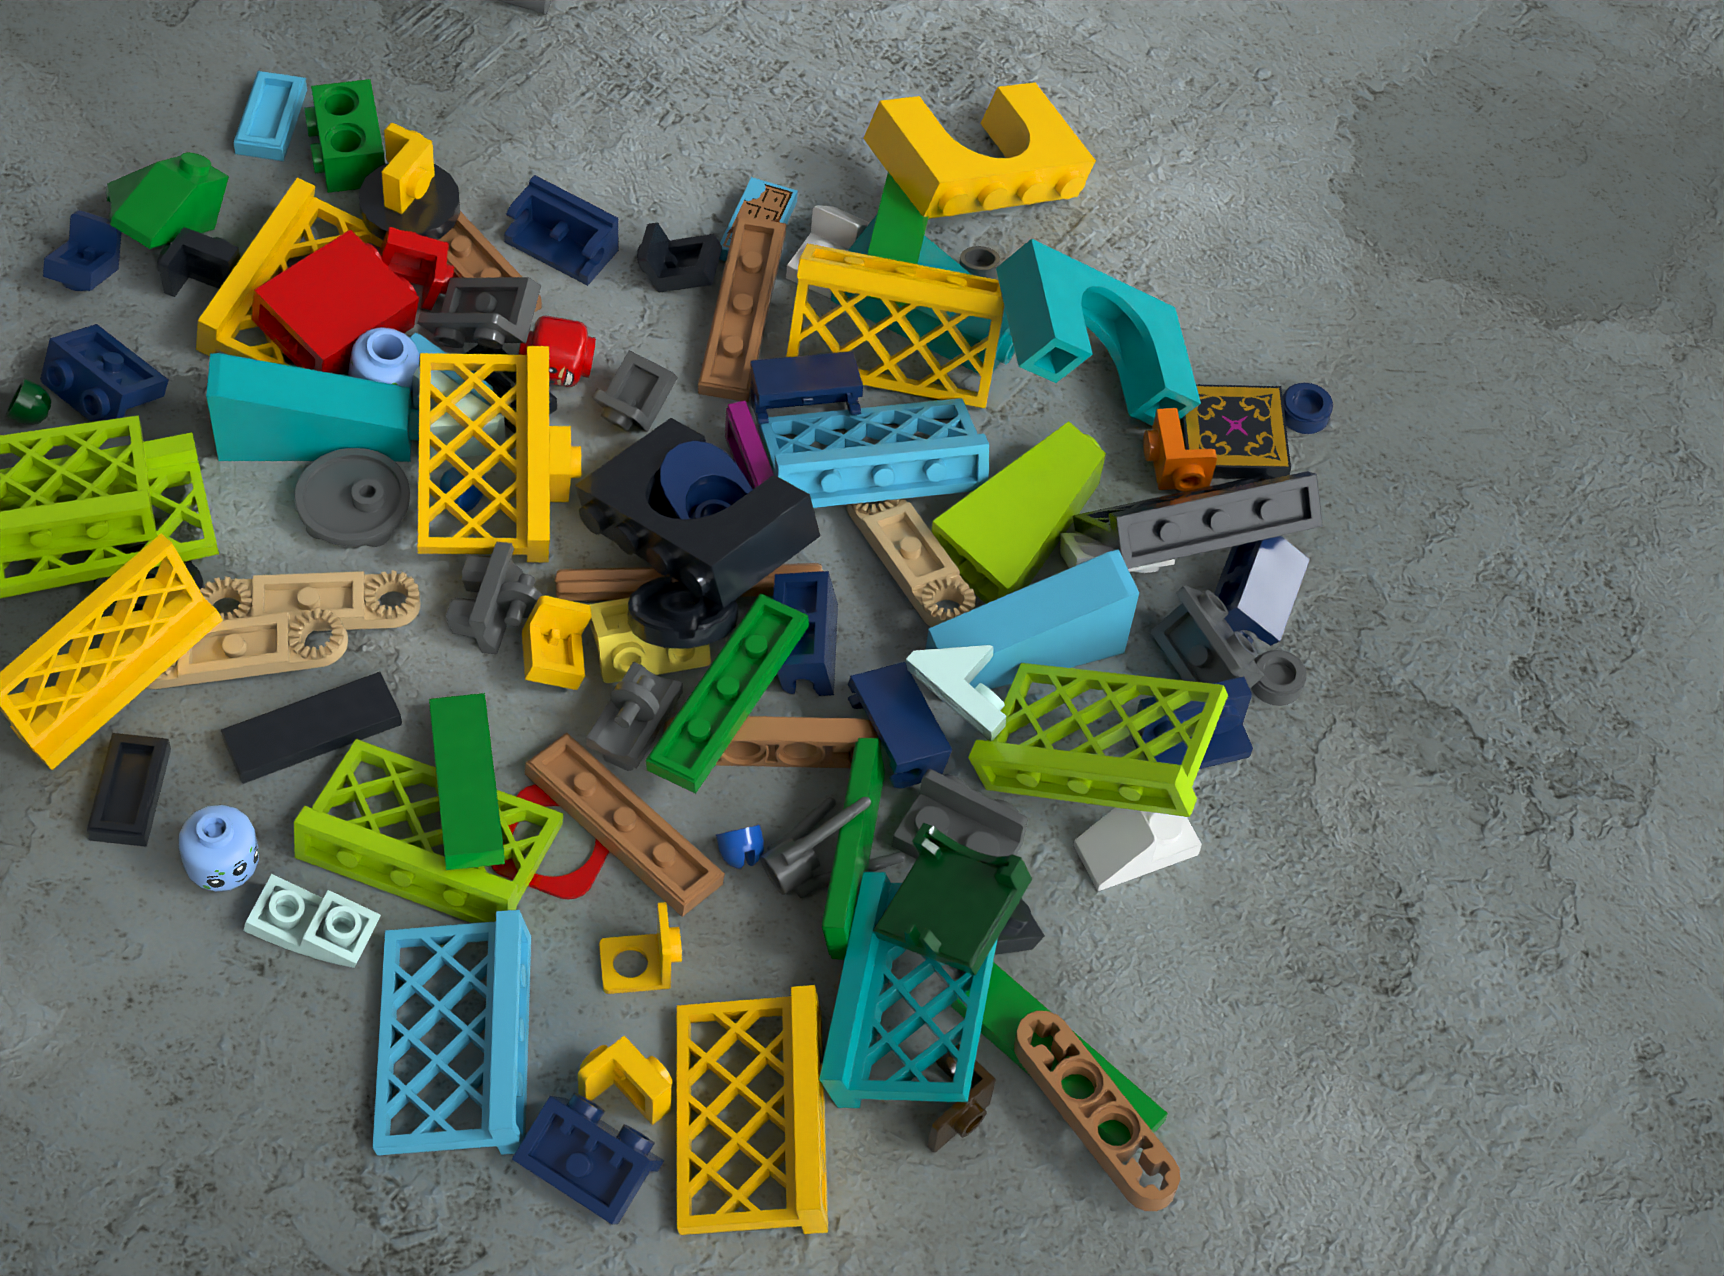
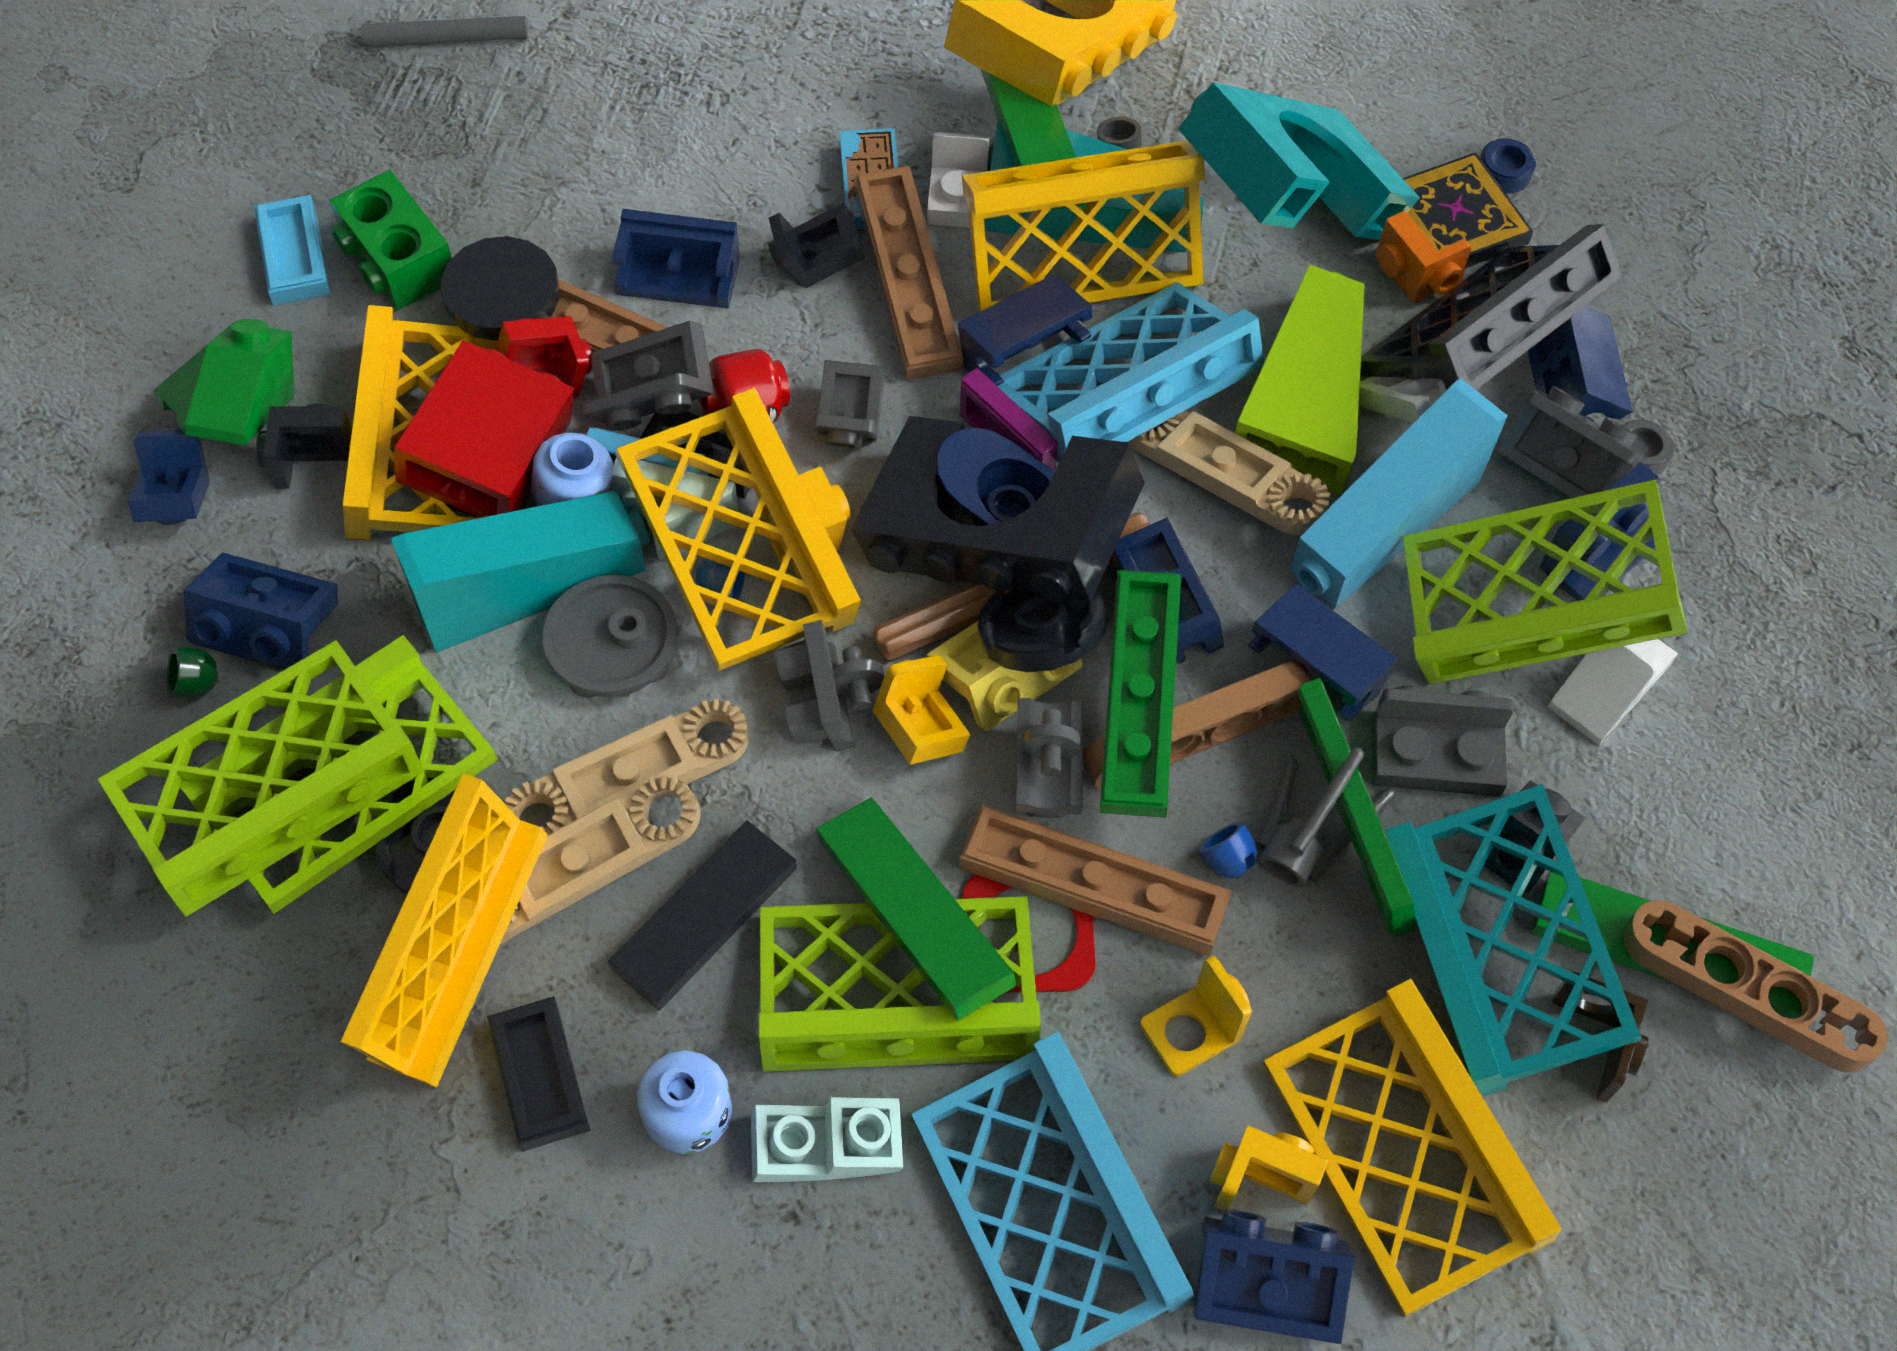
camera: 20 degrees left, 5 degrees up
(408, 167) = (488, 240): yellow bracket -> none
(948, 676) = (1364, 585): light aqua slope -> none
(953, 901) = (1511, 827): dark green piece -> none

